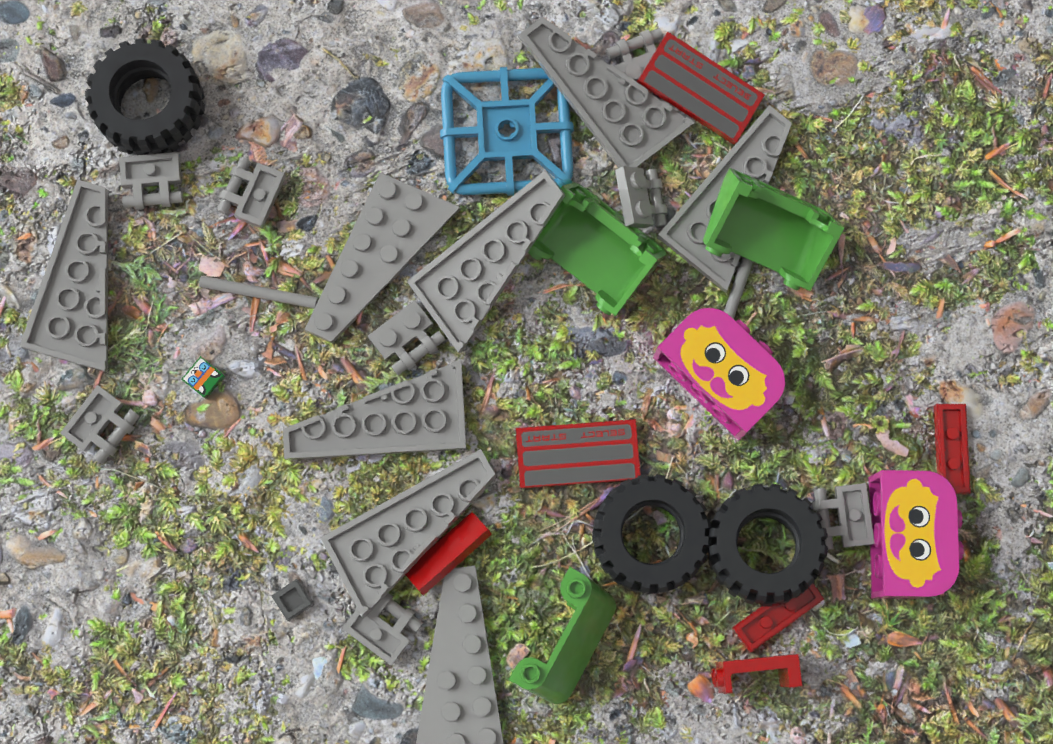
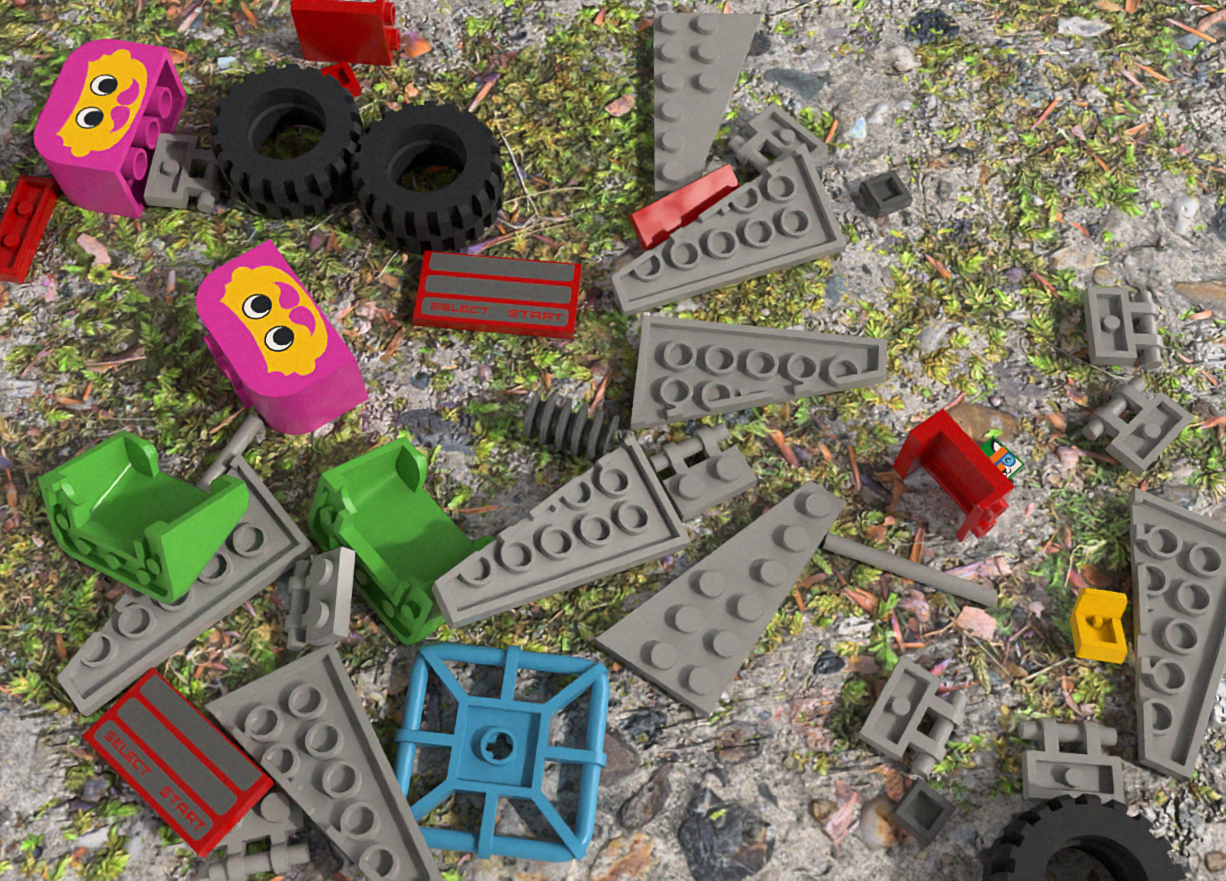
camera: 170 degrees left, 15 degrees down
(117, 504) = (1111, 327): none -> light grey plate
(132, 267) = (1098, 625): none -> yellow bracket
(242, 138) = (922, 812): none -> dark grey tile
(252, 370) = (959, 470): none -> red panel
(501, 348) = (568, 427): none -> dark grey piece
(591, 617) = (593, 60): bright green windscreen -> none

